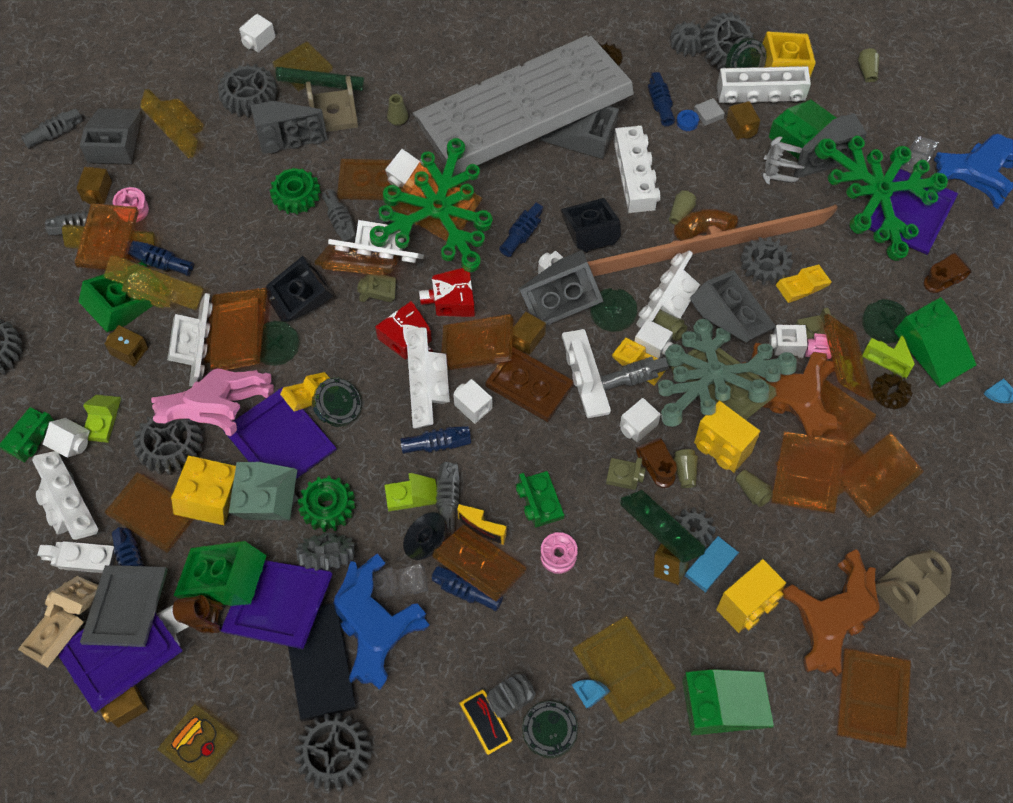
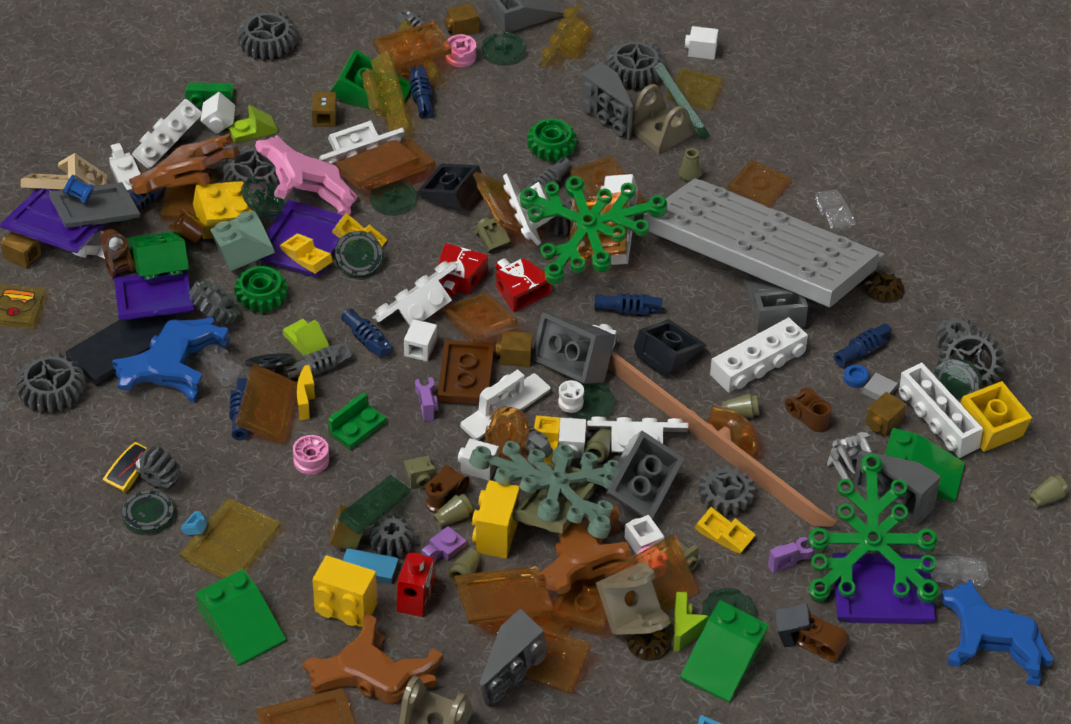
camera: 60 degrees right, 15 degrees down
(101, 610) = (78, 189): none -> blue bush
(130, 503) = (184, 165): none -> dark orange animal
(150, 173) = (503, 49): none -> clear green tile
(207, 530) = (188, 226): none -> reddish brown piece
(216, 448) = (261, 197): none -> clear green tile
(308, 445) = (304, 252): none -> yellow slope
(441, 78) = (759, 183): none -> clear orange tile
(501, 42) = (836, 210): none -> clear slope
(545, 429) = (427, 402): none -> medium lavender plate
(615, 314) = (571, 396): none -> white wheel
(627, 383) = (507, 425): none -> clear orange tile
(710, 164) = (810, 409): none -> reddish brown piece
(718, 492) = (445, 545): none -> medium lavender plate
(763, 535) = (419, 575): none -> red torso
(854, 256) = (787, 555): none -> medium lavender plate
(875, 383) = (645, 606): none -> dark tan hose
(894, 498) = (515, 650): none -> dark grey slope
(931, 282) = (792, 620): none -> black panel

